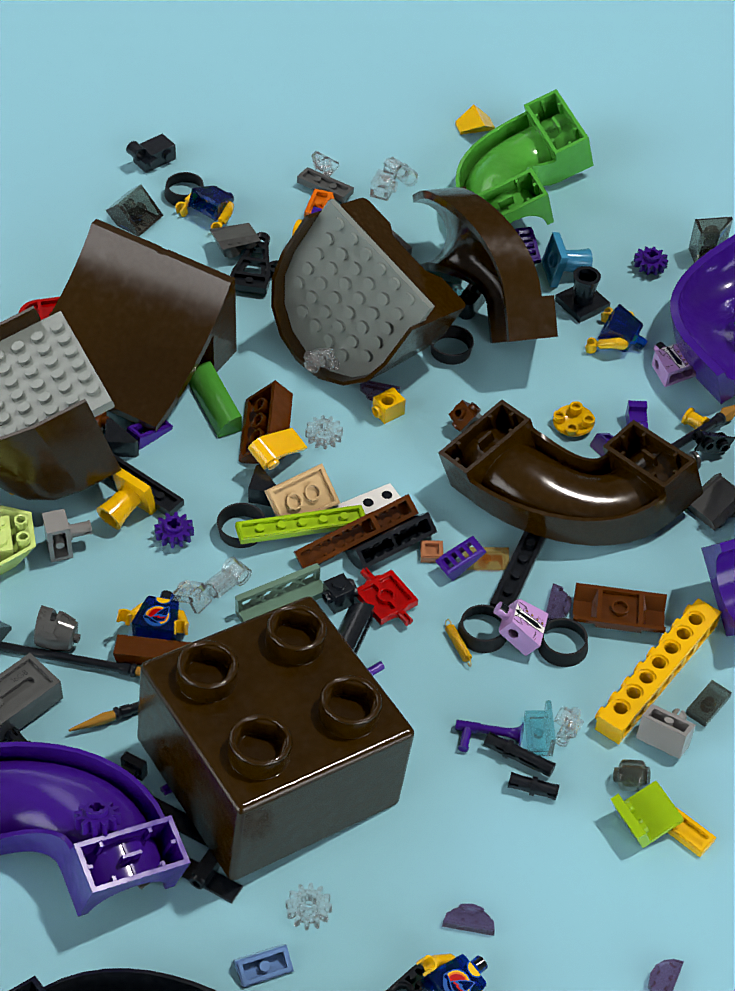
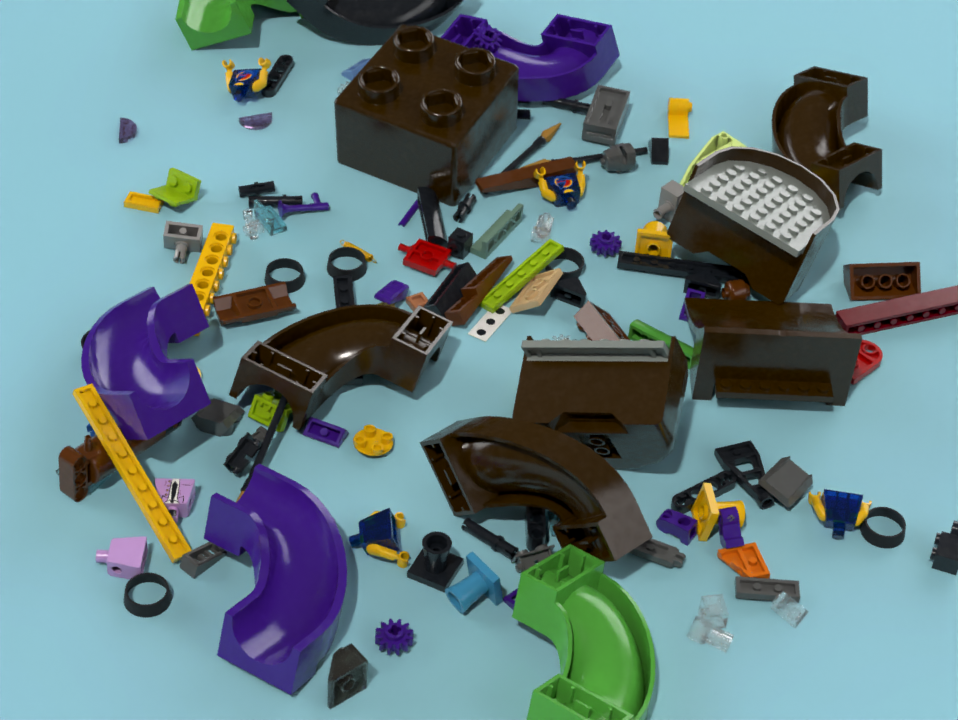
camera: 150 degrees right, 5 degrees down
(135, 211) = (897, 478): clear smoke slope -> none
(194, 594) = (558, 211): clear bracket -> none
(273, 446) = (580, 308): yellow door -> none
(464, 415) = (460, 398): reddish brown brick -> none
(522, 625) = (318, 261): lavender torso -> none
(559, 603) = (303, 301): clear purple tile -> none
(632, 775) = (194, 211): clear smoke head -> none
(637, 411) = (316, 458): dark purple leg -> none
(708, 703) = (161, 272): clear smoke plate -> none

